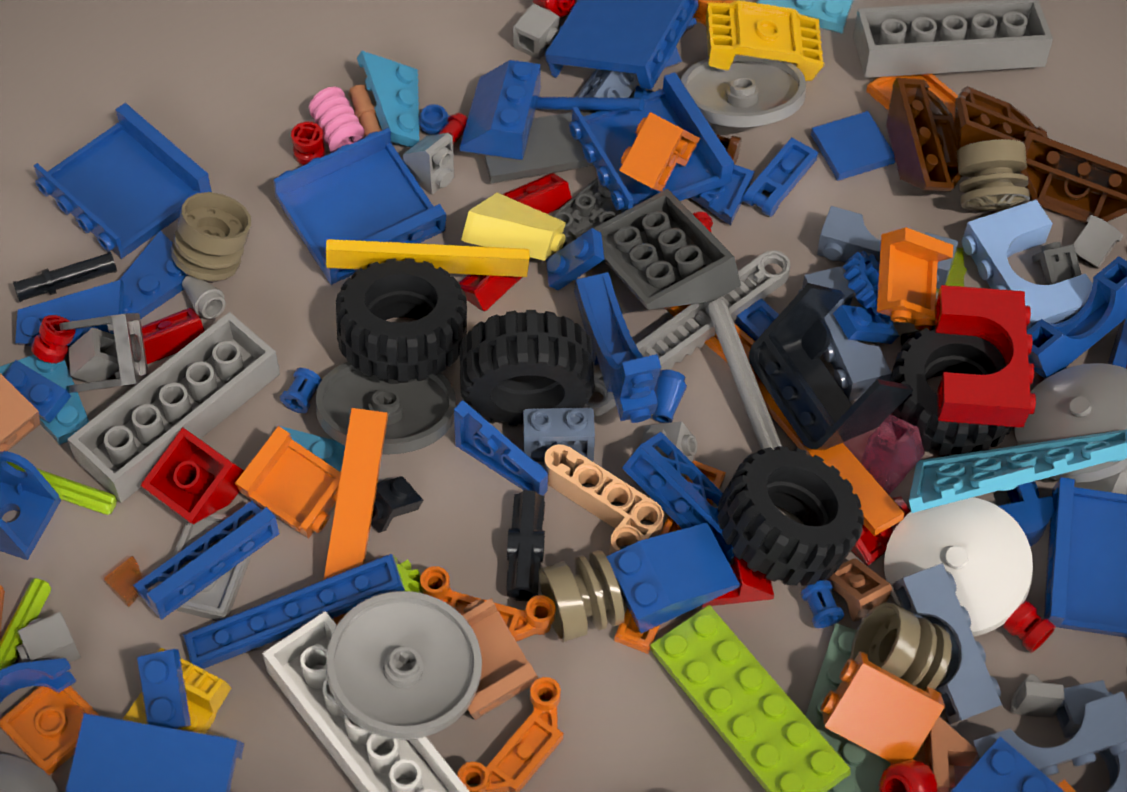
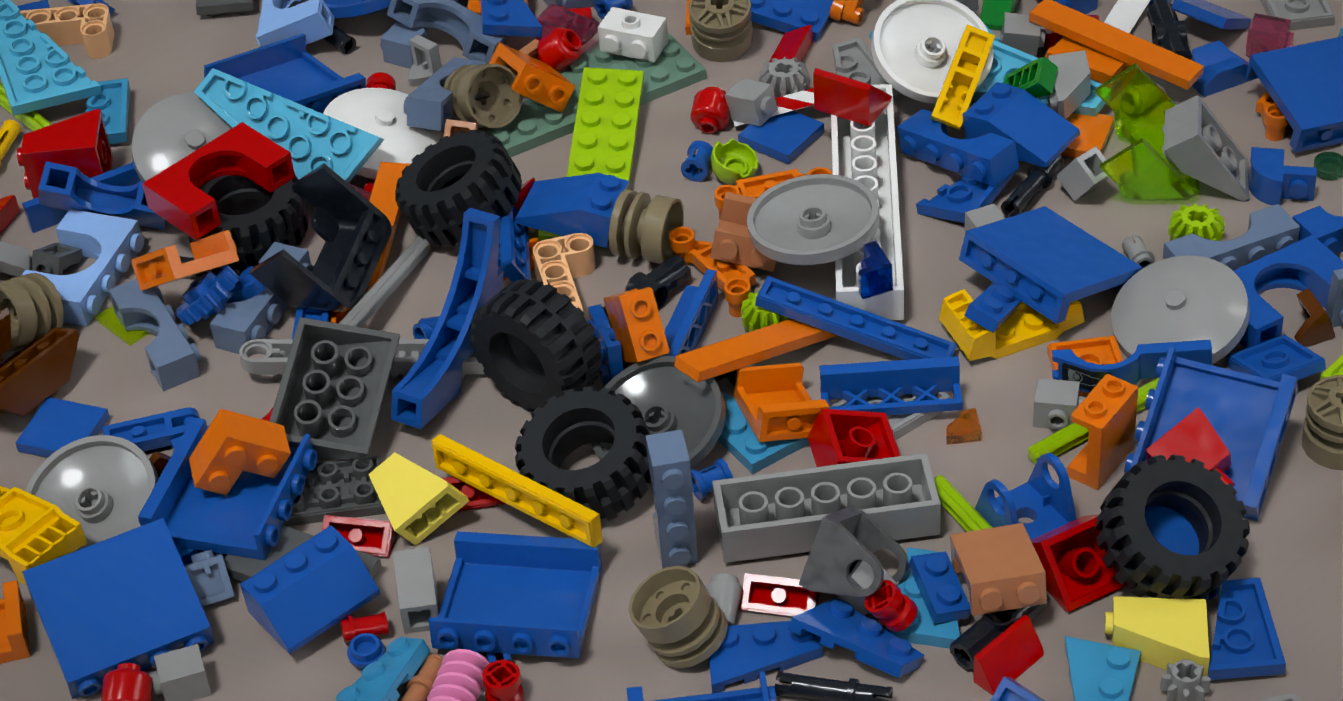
camera: 135 degrees left, 15 degrees down
(271, 270) = (673, 498): none -> sand blue arch
(292, 640) = (876, 272): none -> clear blue bracket
(456, 526) = (692, 315): none -> blue fence
(479, 450) = (637, 324): none -> orange panel
(575, 259) = (392, 435): blue plate -> none
(586, 756) = (733, 161): none -> lime hair
(591, 103) = (223, 541): blue bar -> none
(628, 743) = (696, 161): none -> blue bush

